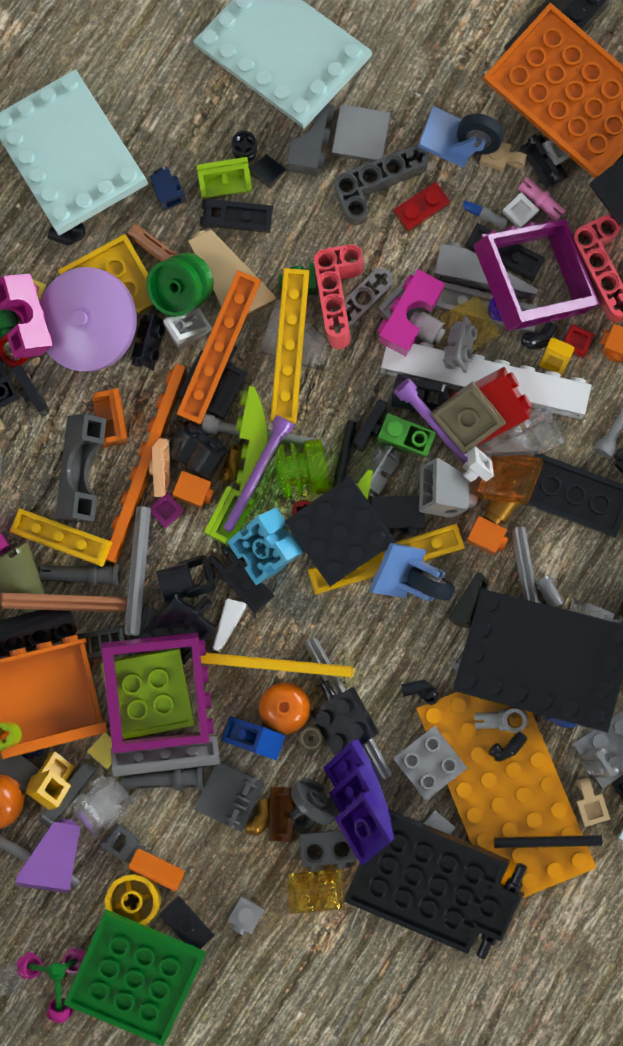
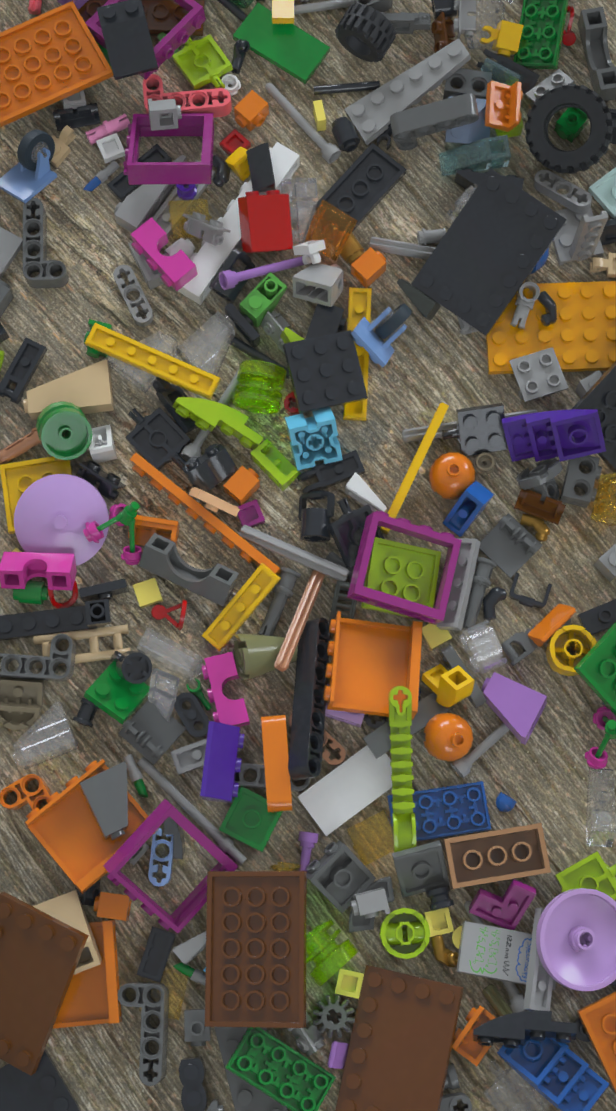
camera: 70 degrees left, 5 degrees down
(30, 456) = (160, 612): none -> red piece
(46, 436) = (147, 593): none -> light yellow tile
(111, 381) = (122, 516): none -> plant
(161, 796) = (490, 600): none -> black arm
(175, 838) = (527, 601): none -> black piece
(218, 347) = (131, 417): orange plate -> none
(230, 468) = (234, 449): pearl gold arm -> none
(263, 380) = (167, 394): none -> black hinge
(280, 429) = (221, 389): medium lavender piece -> none
(333, 399) = (209, 344): none -> clear slope
(334, 298) = (126, 310): coral beam -> none
(421, 206) = (74, 223): red plate -> none
(422, 689) = (476, 361): black arm -> none
(468, 417) = (268, 240): dark tan tile -> none
(550, 379) = (261, 168): none -> black slope
(572, 251) = (164, 114): none -> light grey brick

